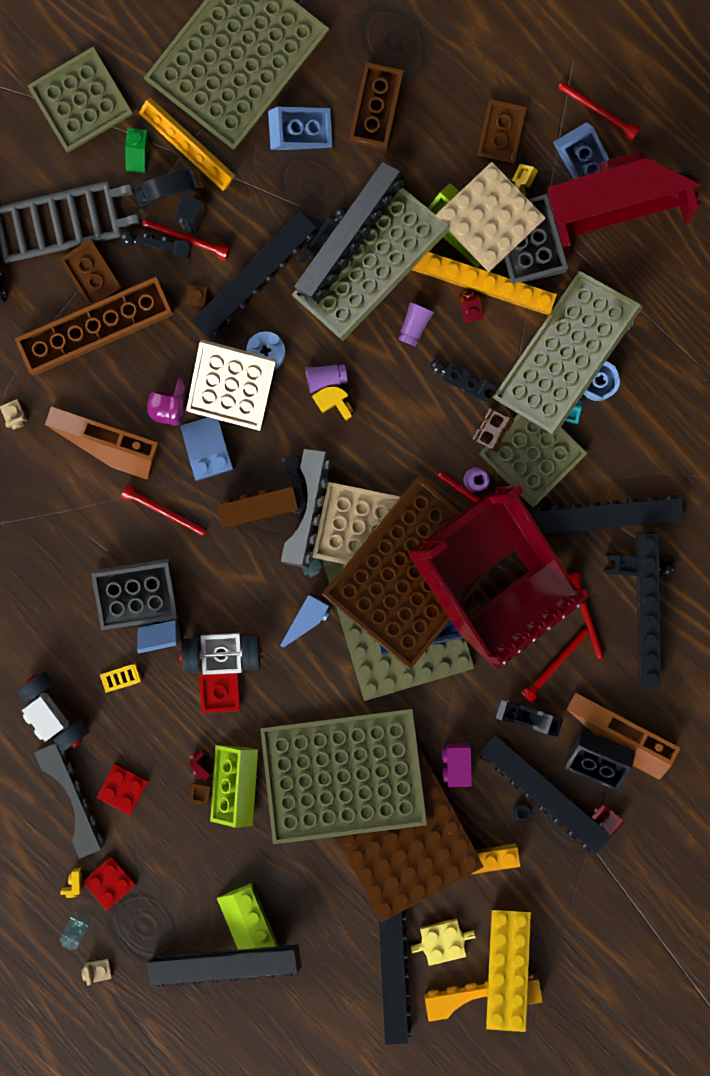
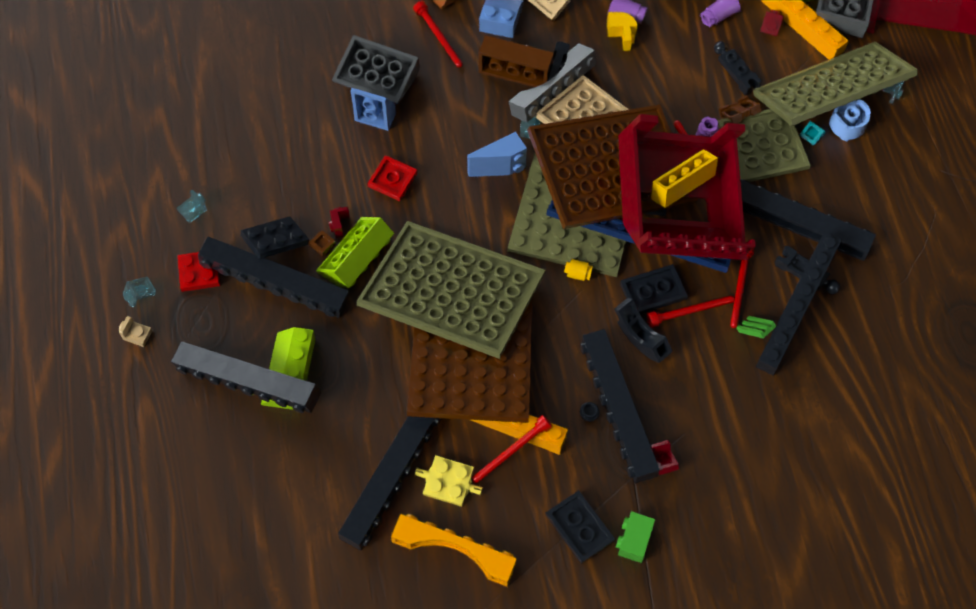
camera: 30 degrees right, 25 degrees down
(46, 716) = (242, 115): brick -> none
(61, 827) = (192, 207): none -> clear light blue bracket
(74, 879) = (171, 251): yellow bracket -> none
(85, 836) = (207, 219): dark grey arch -> none
(122, 789) = (262, 206): red plate -> none
(135, 671) = (323, 133): yellow slope -> none
(157, 819) = (274, 237): none -> black plate
(181, 856) = (273, 277): none -> black brick
(221, 653) = (414, 144): brick -> none
(438, 686) = (578, 270): none -> yellow brick
(458, 765) = (556, 334): magenta brick -> none
(490, 559) = (684, 178): none -> yellow brick
(496, 862) = (541, 425): none -> red piece
(508, 970) = (492, 530): yellow brick -> none
(516, 672) = (654, 289): none -> black plate
(571, 917) = (580, 527): none -> black plate
(600, 760) = (686, 398): black brick -> none
(611, 650) = (758, 324): none -> bright green tile
(621, 900) = (636, 536): none -> bright green brick
(652, 753) = (721, 399): dark orange wedge -> none

